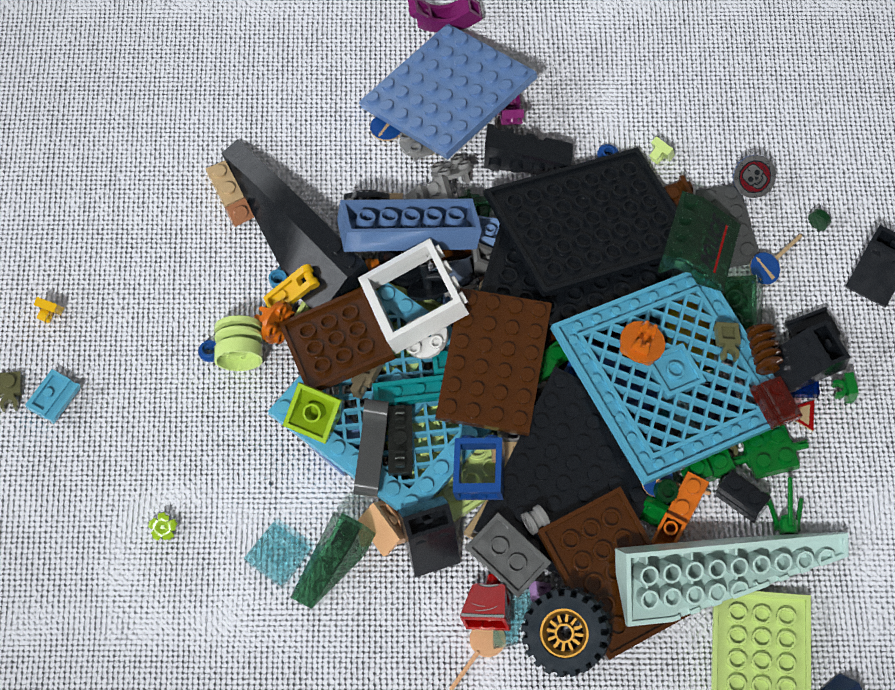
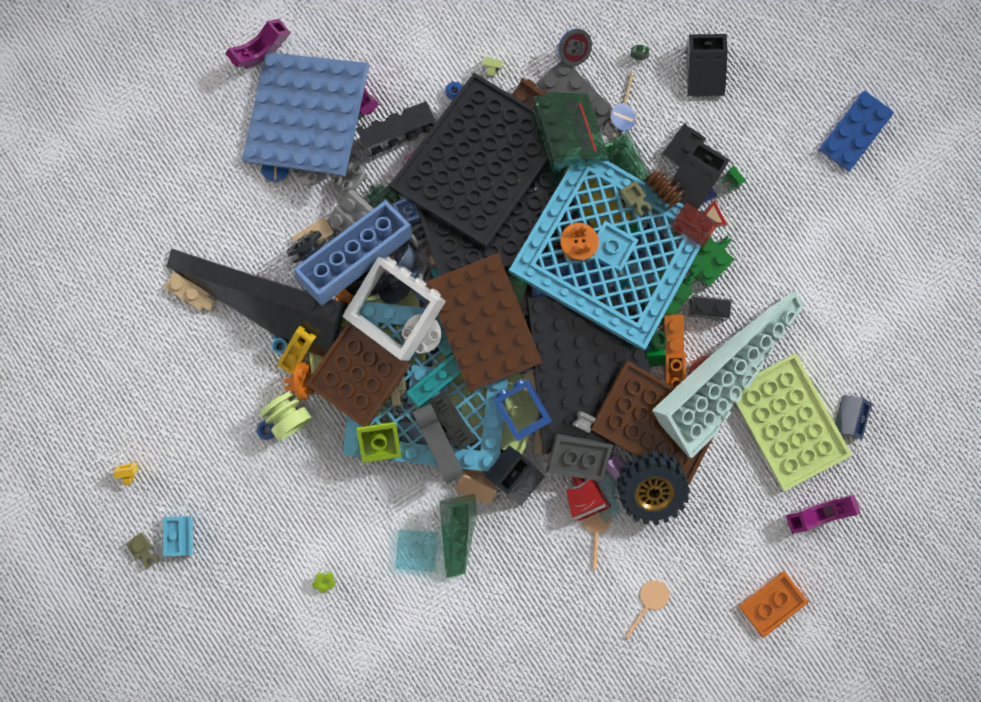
camera: 30 degrees left, 20 degrees up
(239, 212) = (213, 308): nougat plate -> none
(788, 523) = (752, 308): green plant -> none

